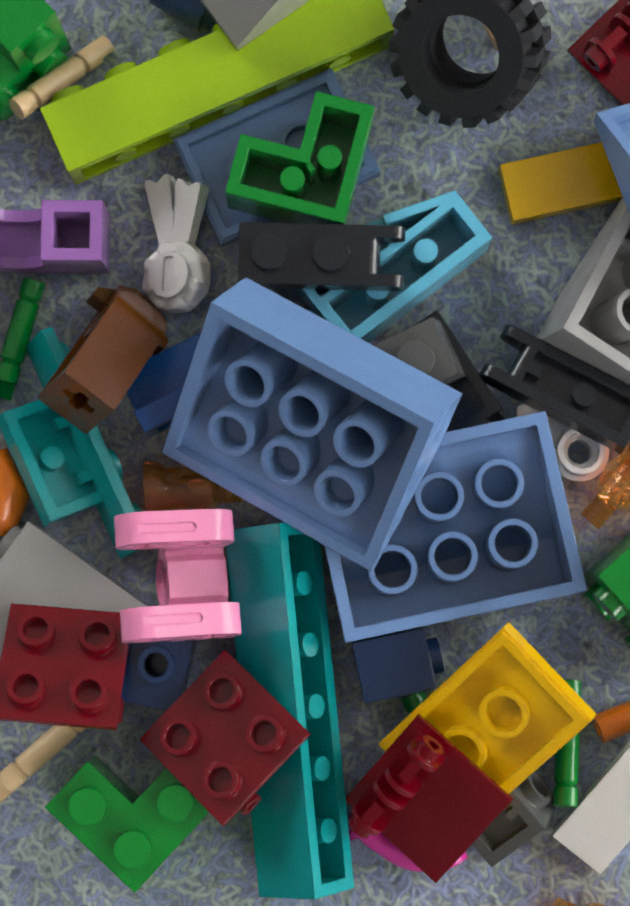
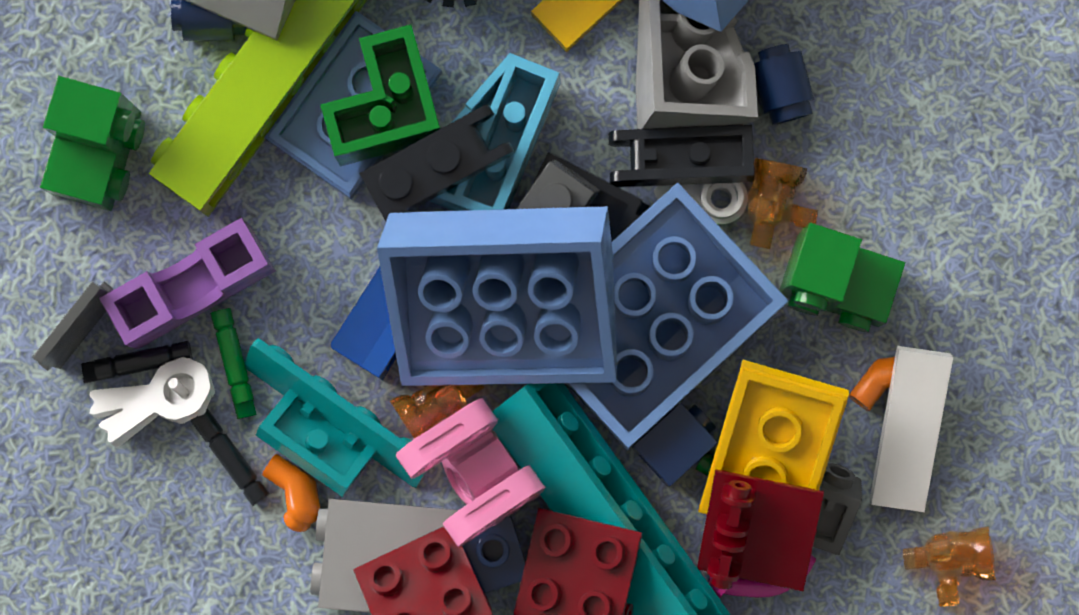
camera: 30 degrees left, 0 degrees up
(61, 77) = (148, 139): tan wheel -> none
(106, 357) = (314, 337): reddish brown piece -> none
(178, 270) = (328, 237): white piece -> none
(567, 766) = (852, 444): green wheel -> none

